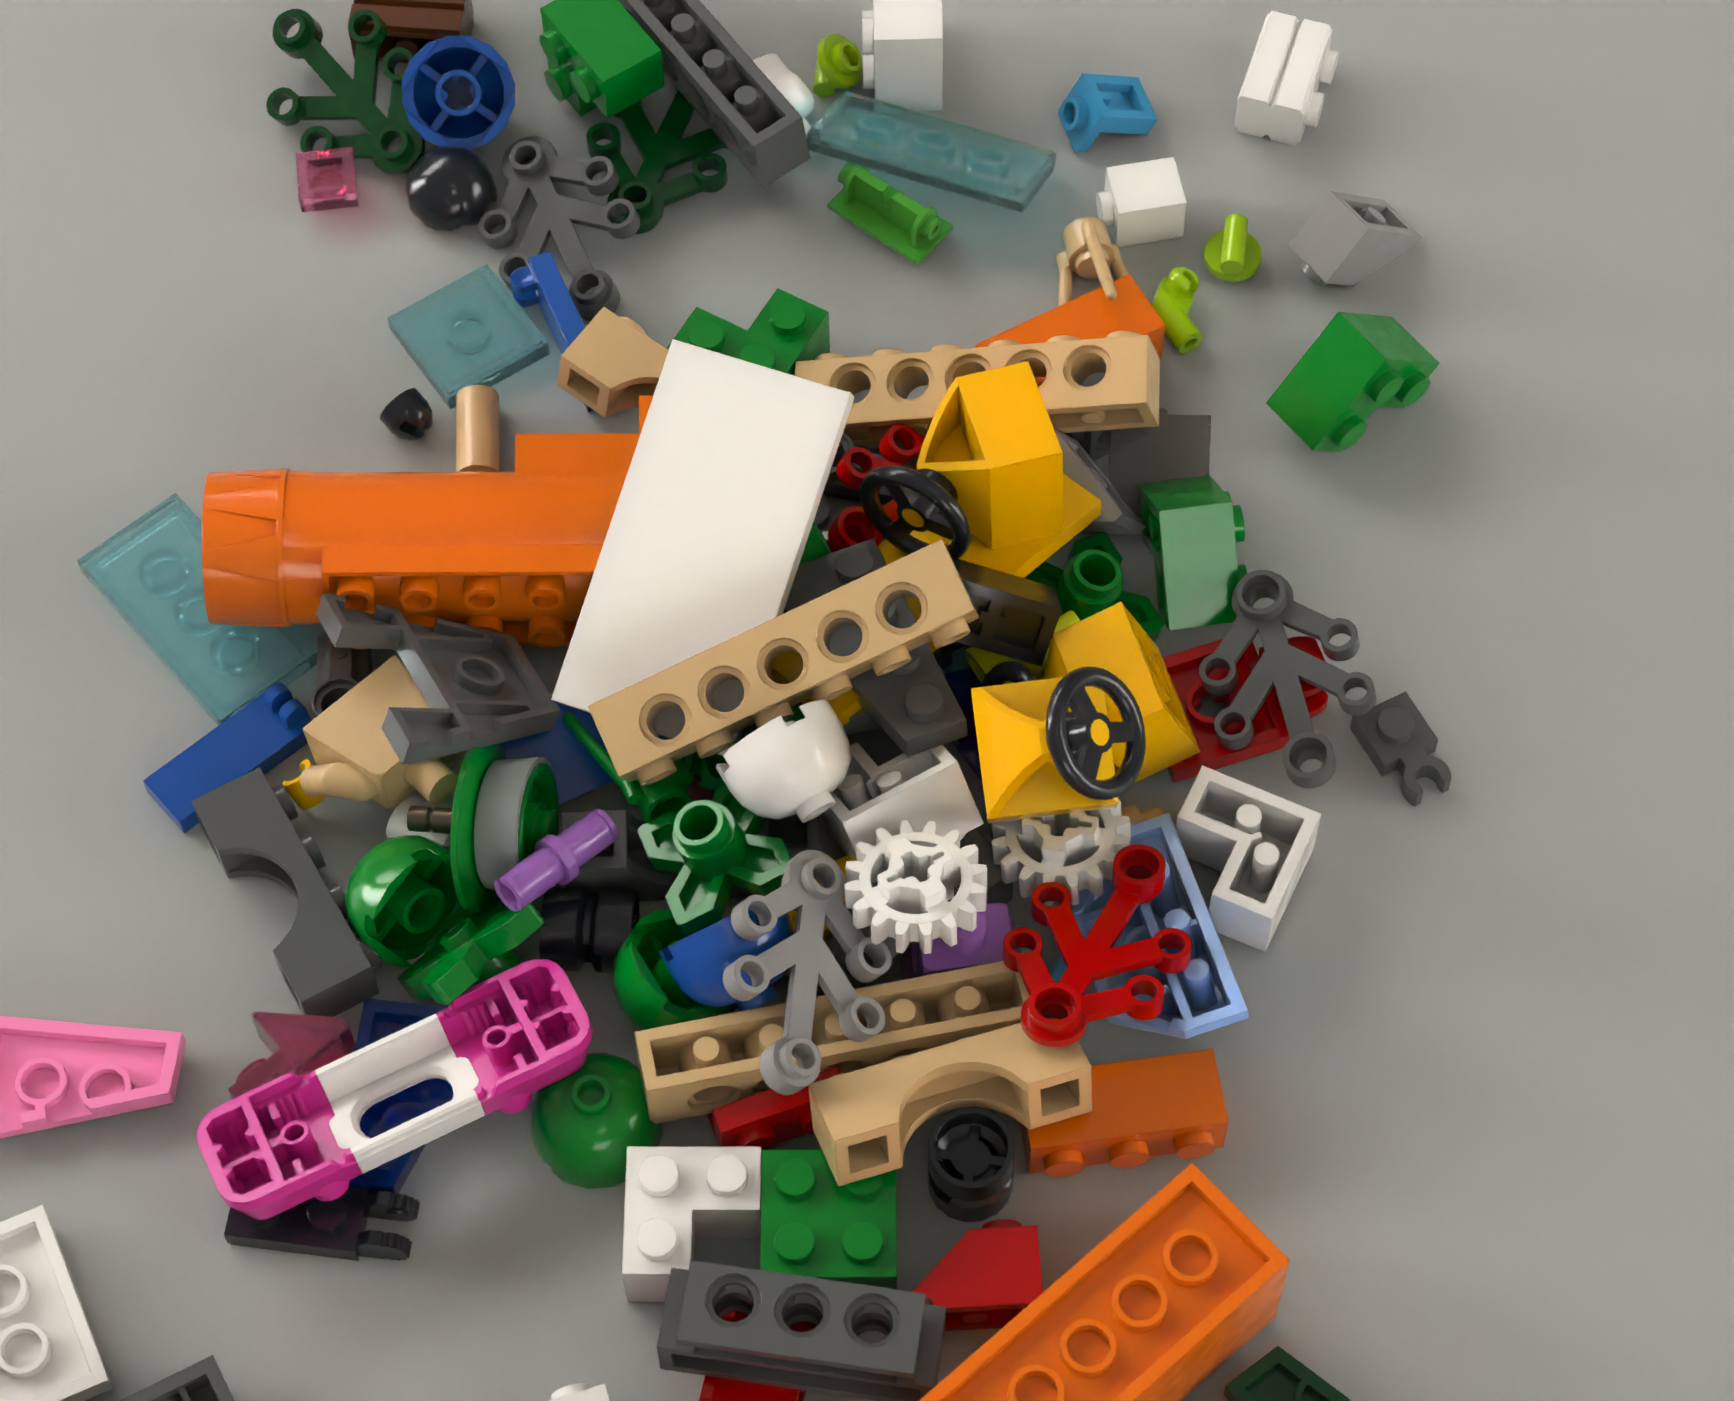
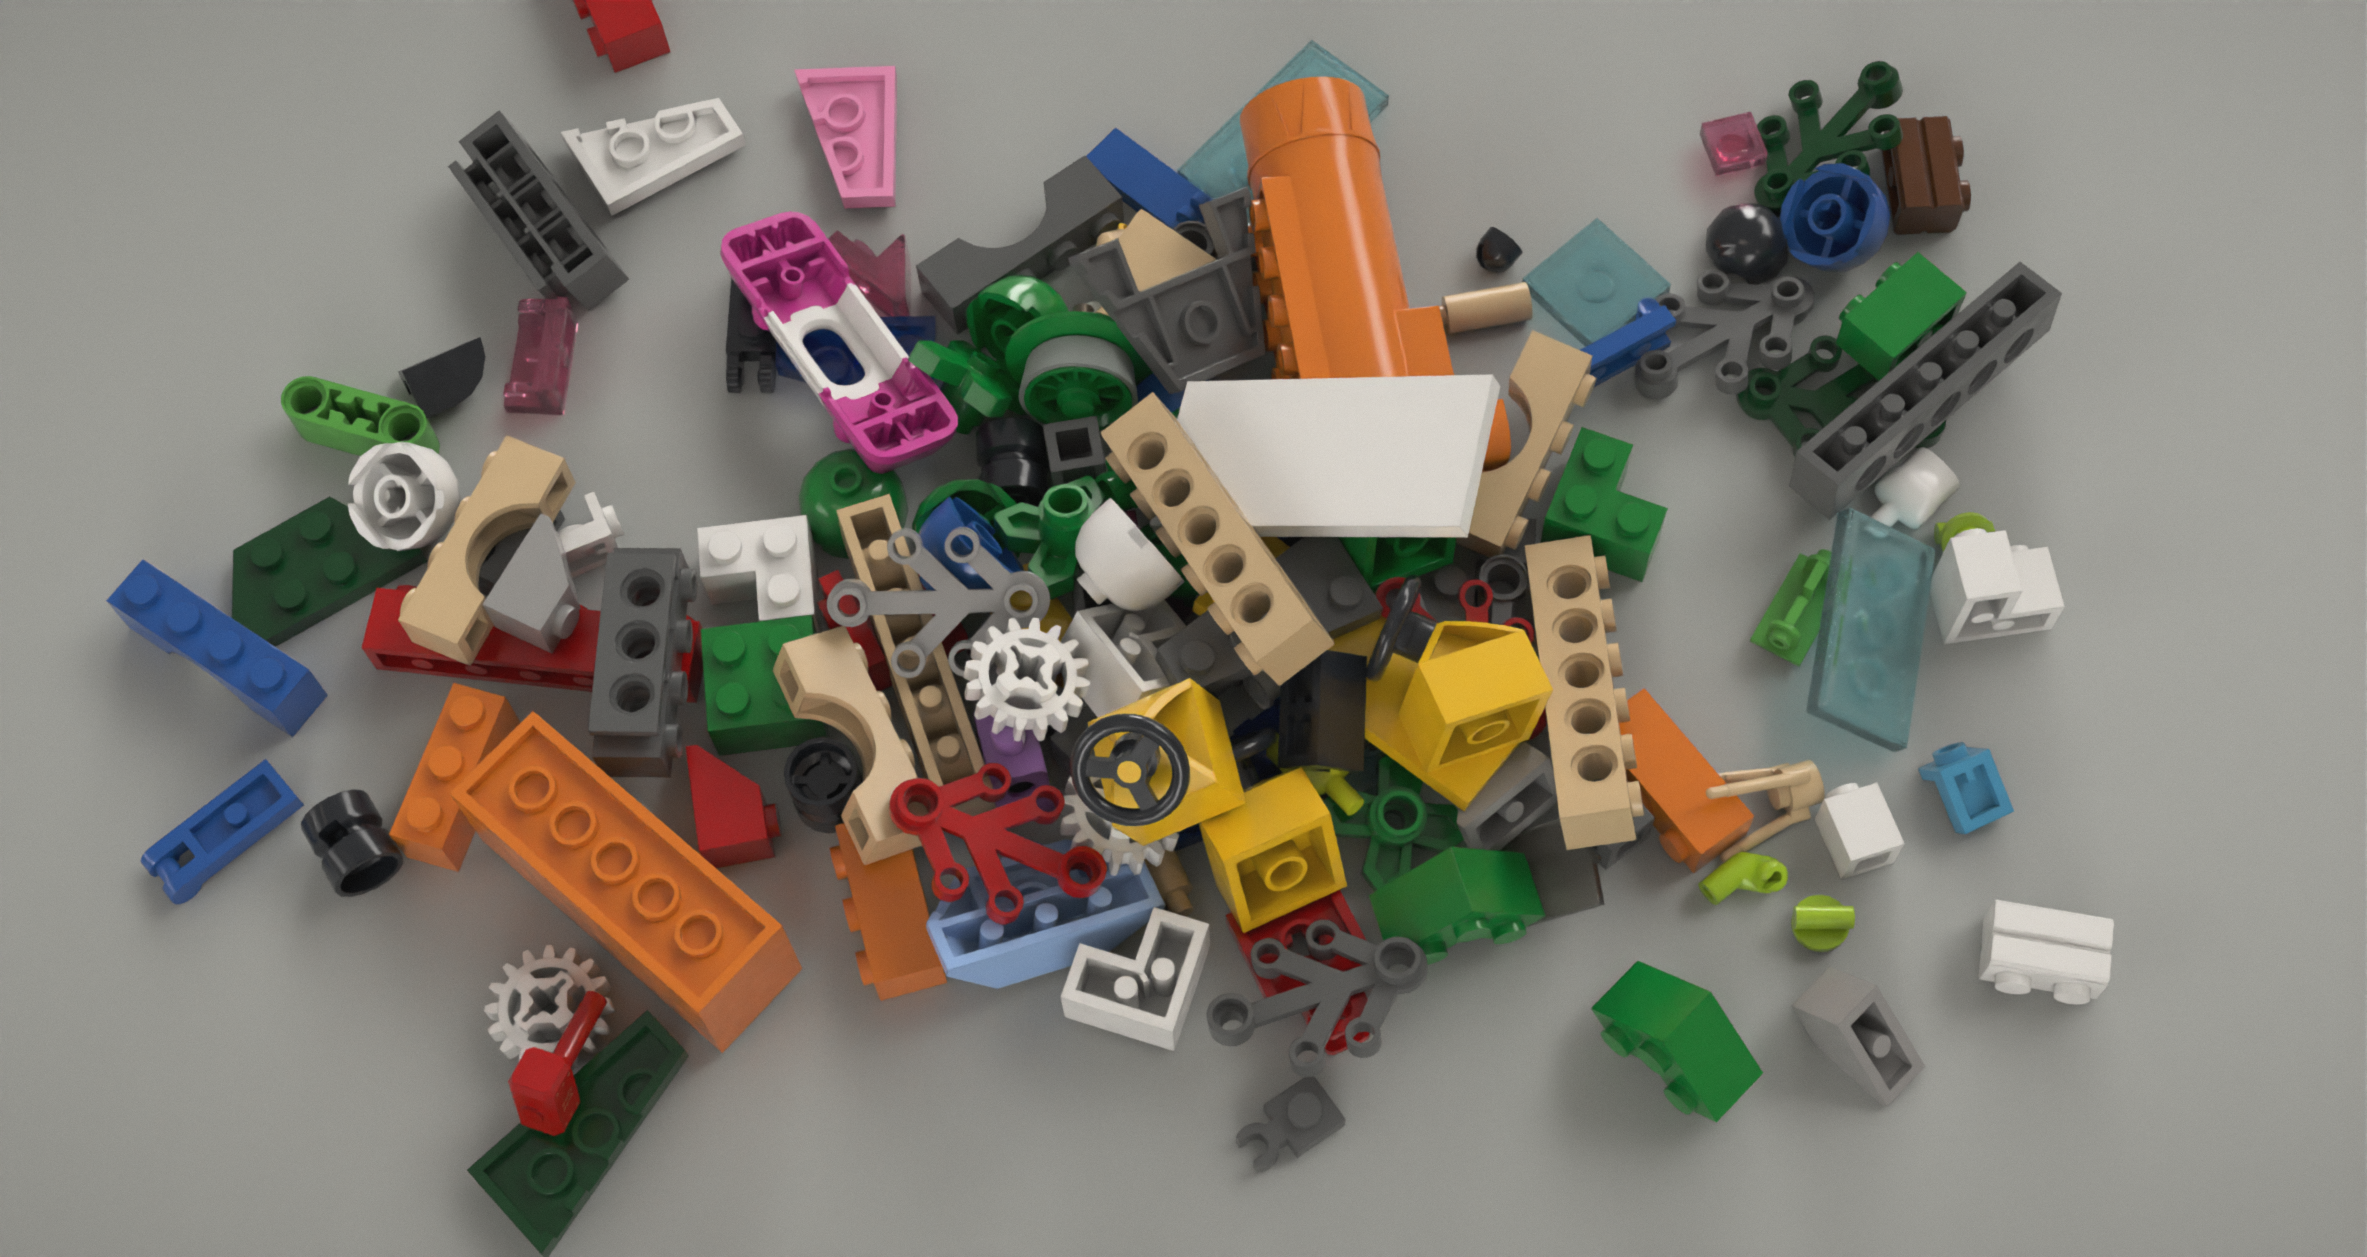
camera: 85 degrees right, 5 degrees up
(556, 859) = (1036, 410): medium lavender pin -> none

